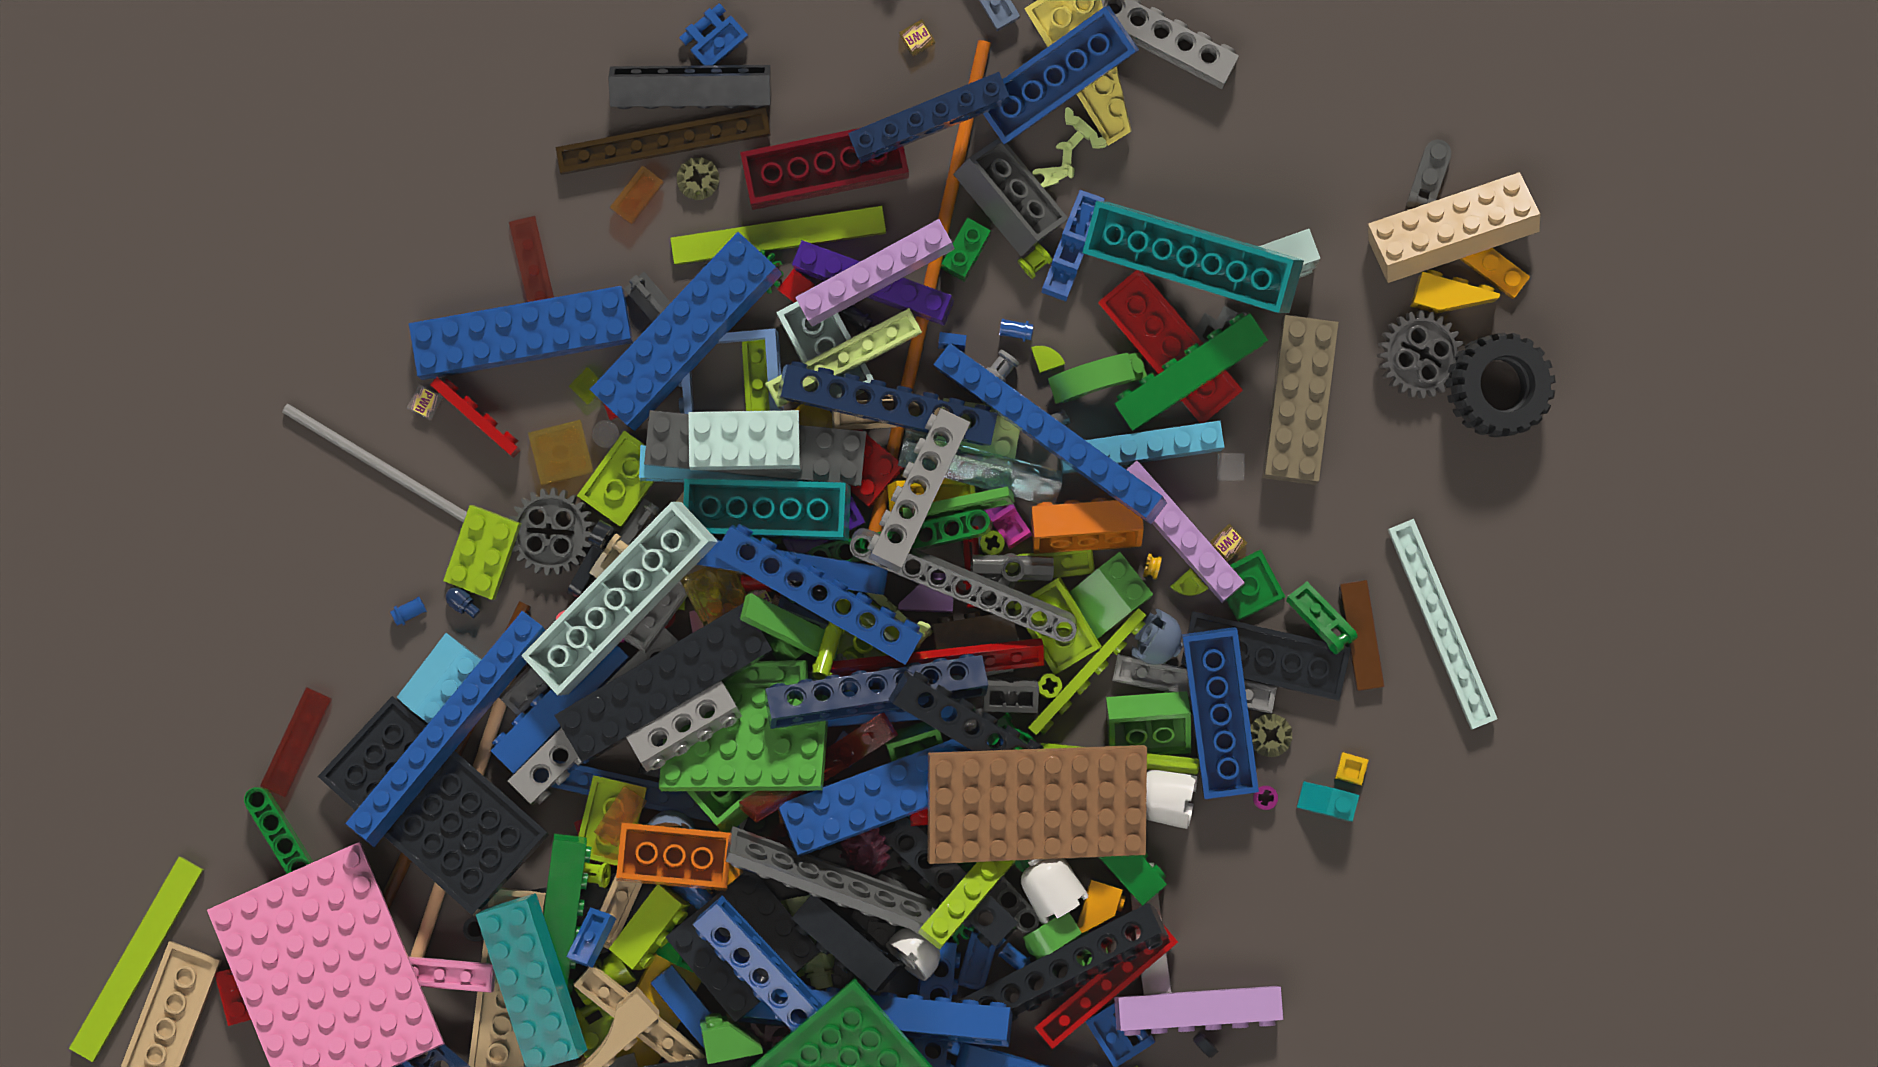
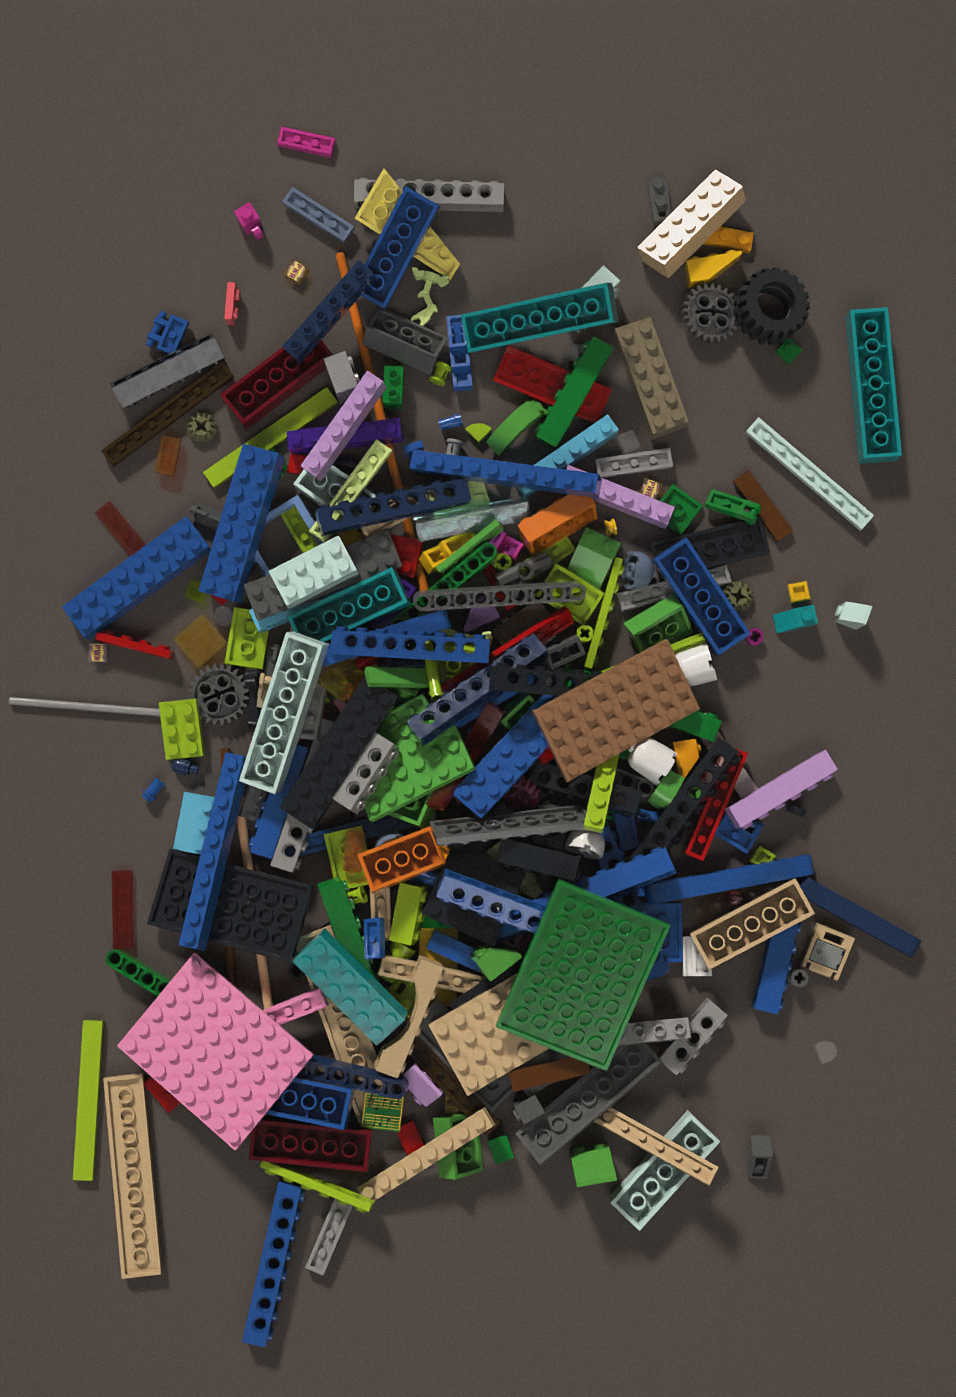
camera: 25 degrees left, 0 degrees up
(809, 49) = (232, 297): none -> coral plate
(894, 554) = (443, 500): light grey brick -> none
(906, 204) = (341, 374): none -> light grey brick
(1189, 584) = (639, 528): lime tile -> none
(1224, 498) = (634, 463): none -> light grey plate
(1403, 832) = (853, 614): none -> light aqua slope
(1497, 452) = (788, 351): none -> green plate
(1581, 551) = (873, 385): none -> teal brick

